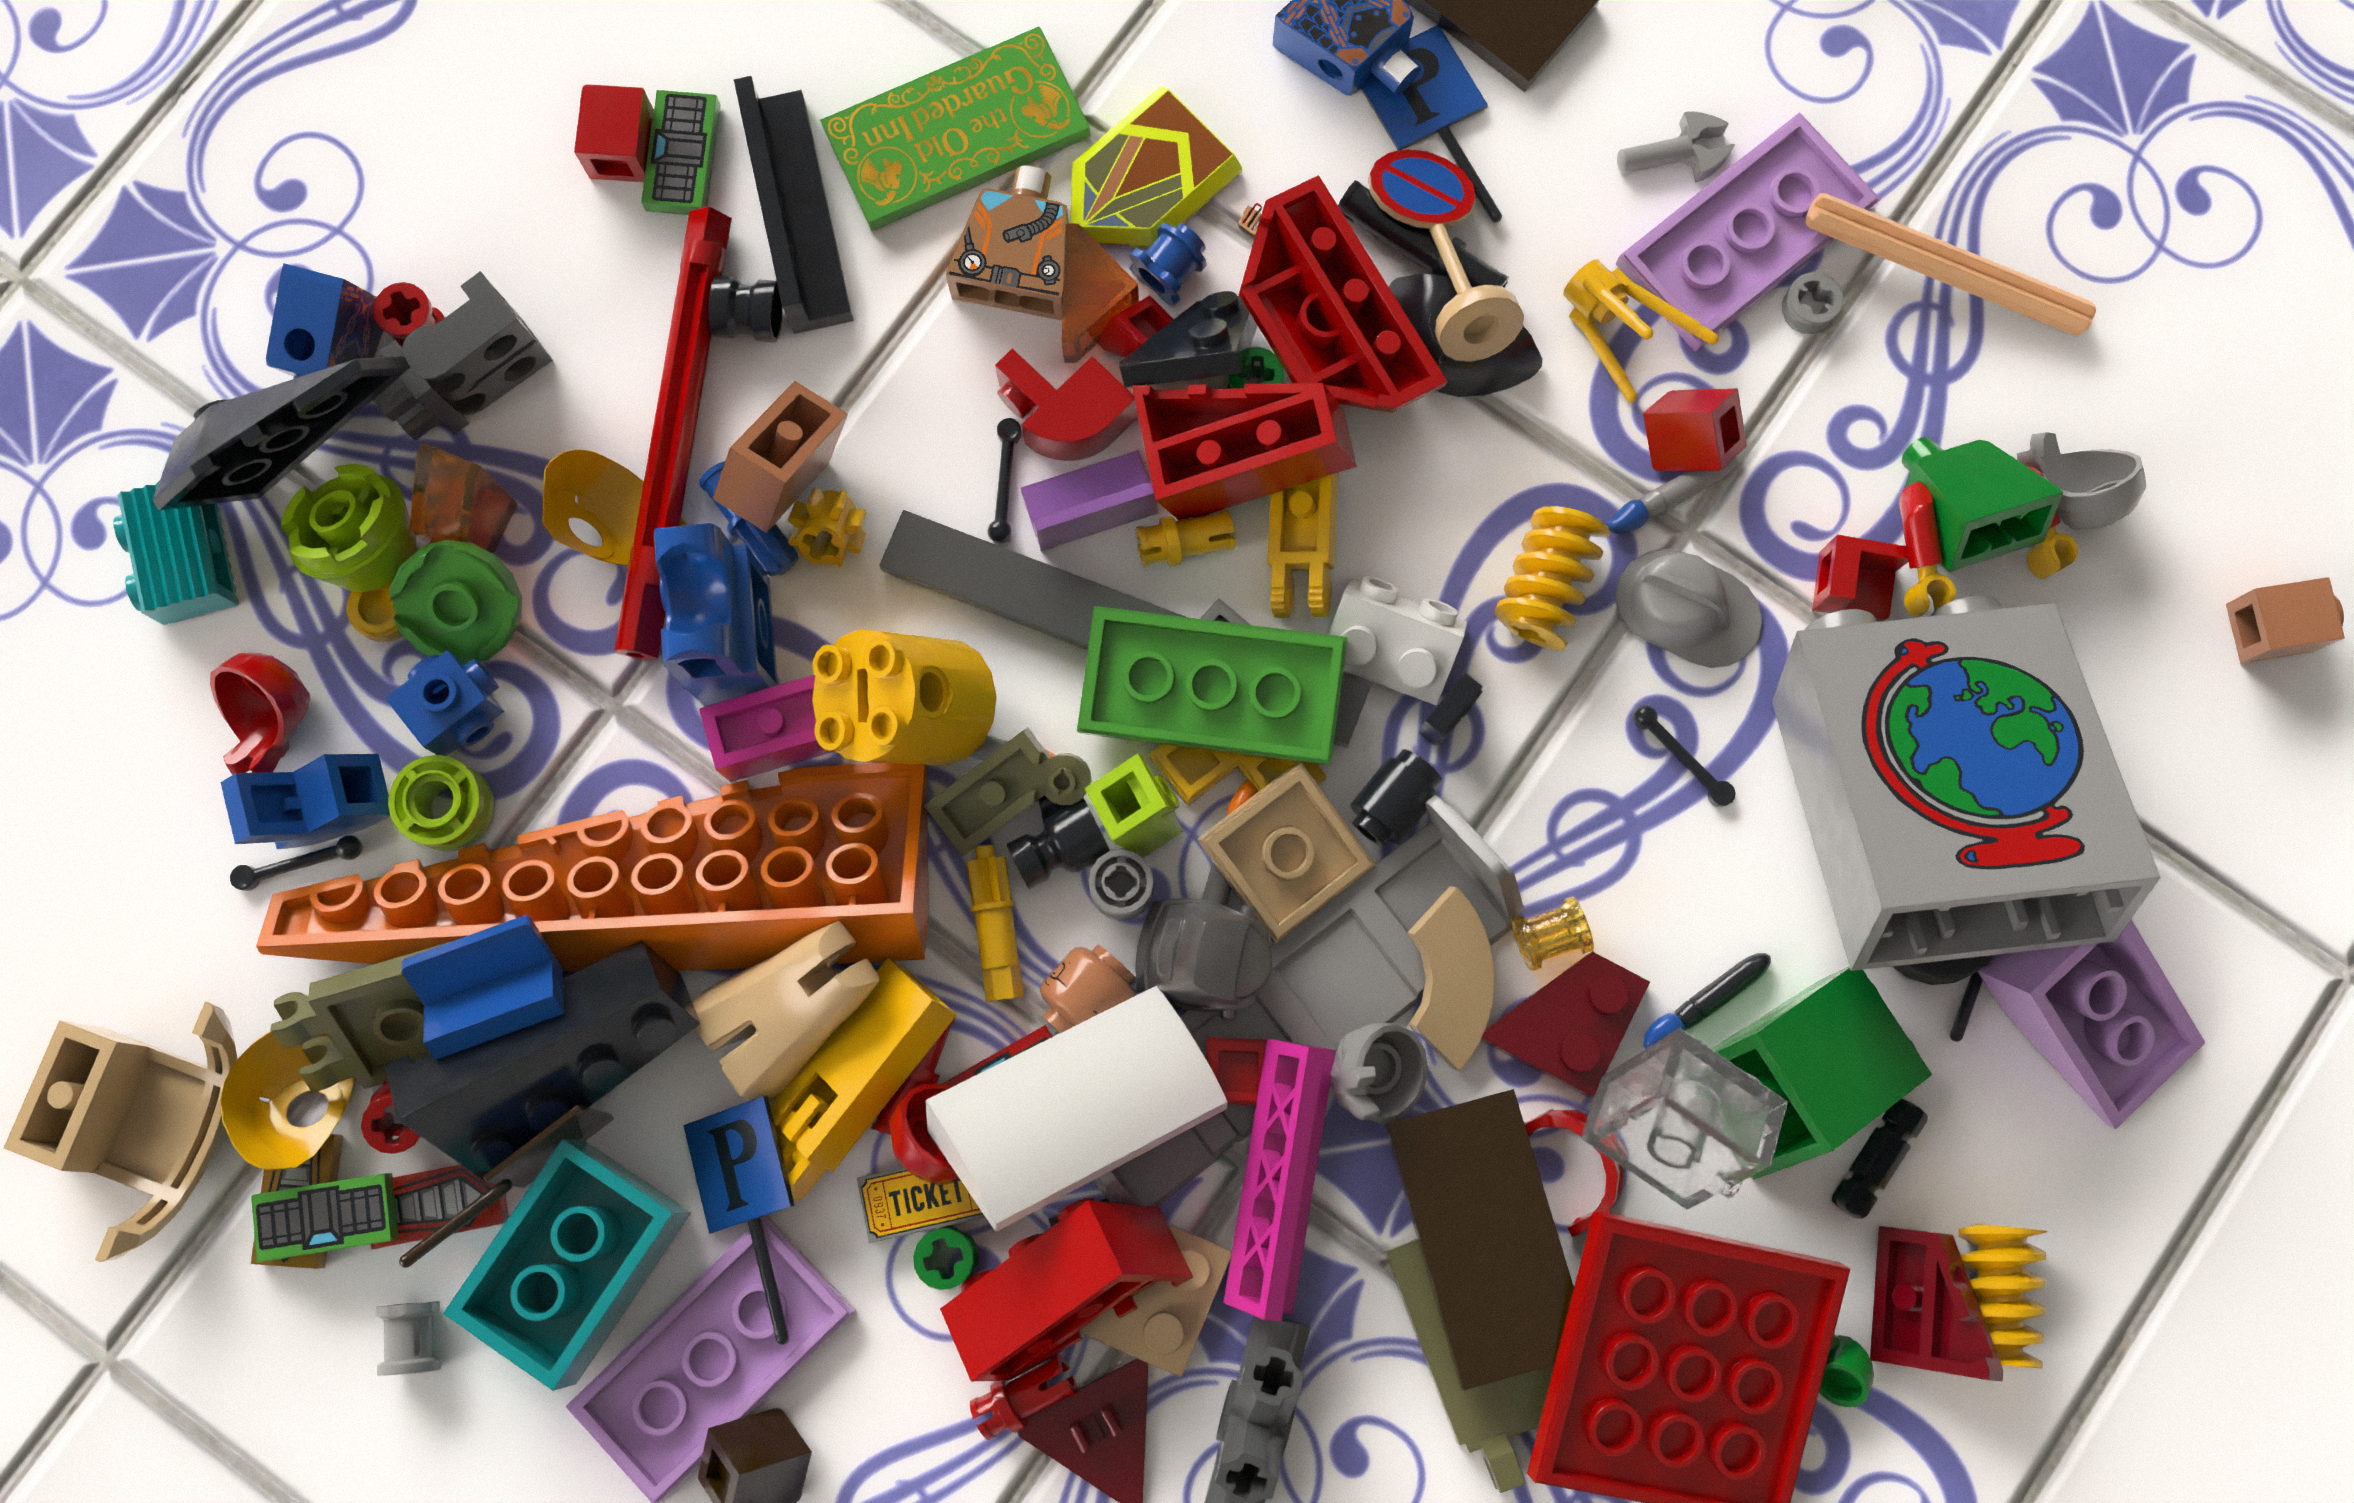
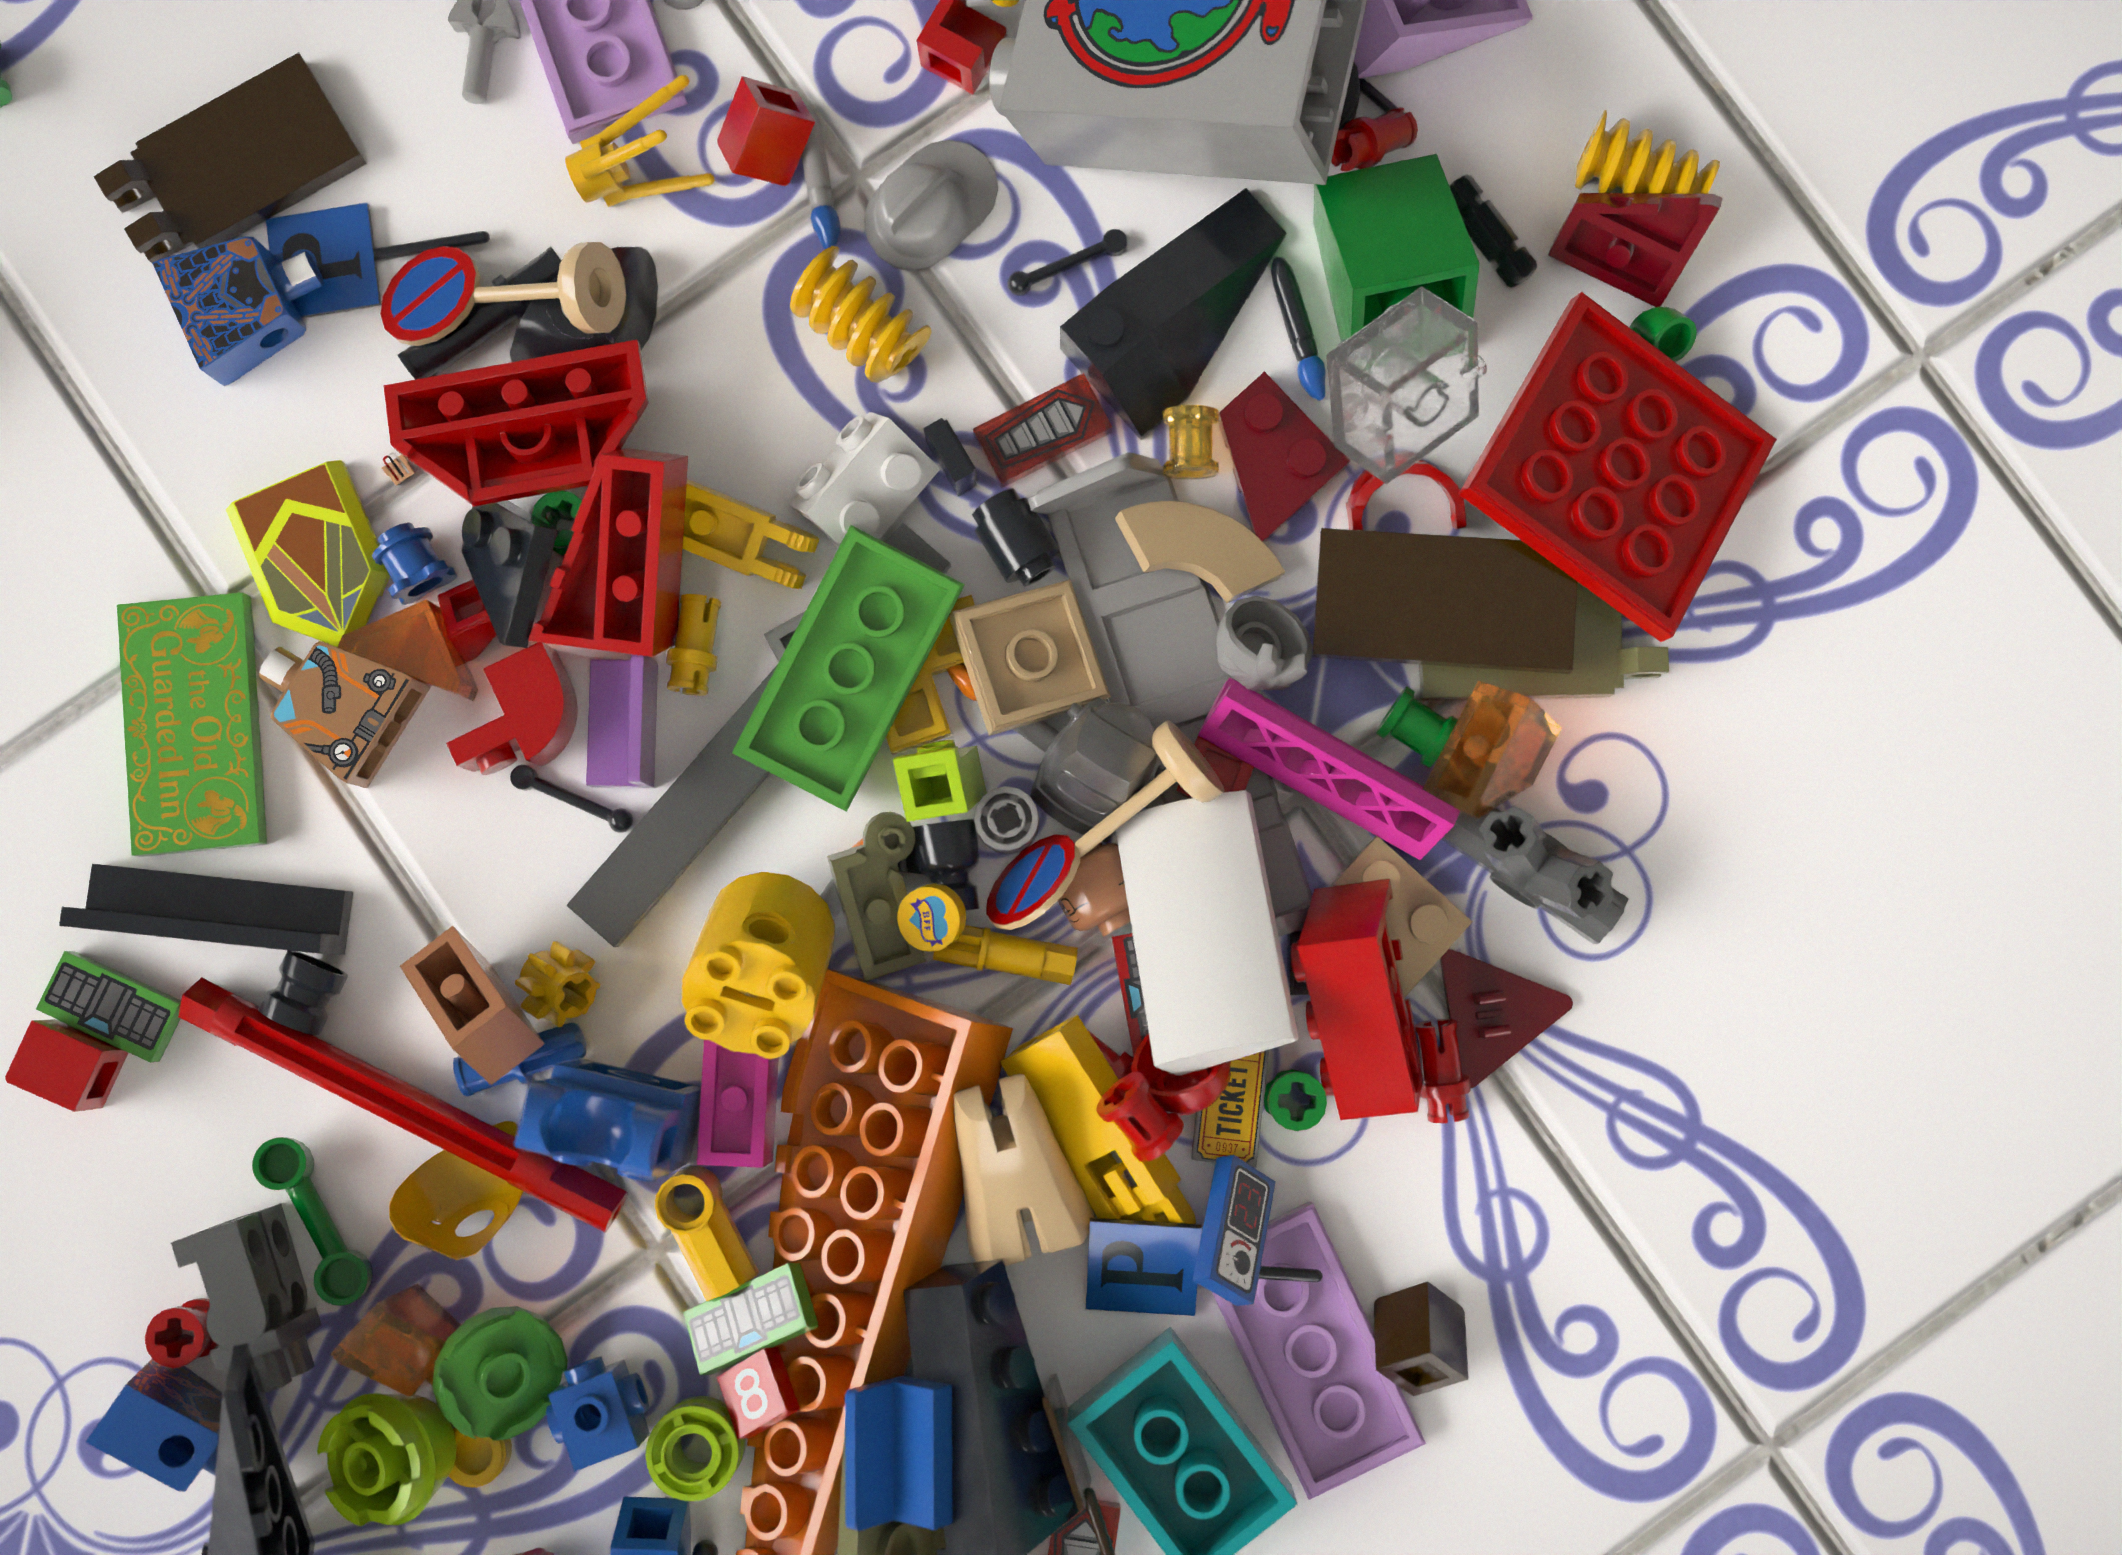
camera: 70 degrees left, 5 degrees up
(505, 433) = (287, 1166): none -> green bar
(508, 841) = (758, 1393): none -> tile
(574, 810) = (750, 1319): none -> tile
(638, 746) = (707, 1238): none -> yellow piece
(799, 1240) = (1234, 1231): none -> tile
(874, 1106) = (1140, 1117): none -> red bush
(1002, 844) = (931, 917): none -> yellow tile
(1090, 937) = (1049, 865): none -> piece
(1353, 1336) = (1492, 751): none -> clear orange slope
(1354, 1255) = (1417, 726): none -> green bush
(1510, 788) = (1042, 430): none -> tile
(1666, 869) = (1167, 317): none -> black wedge
(1918, 1001) = (1367, 140): none -> red pin

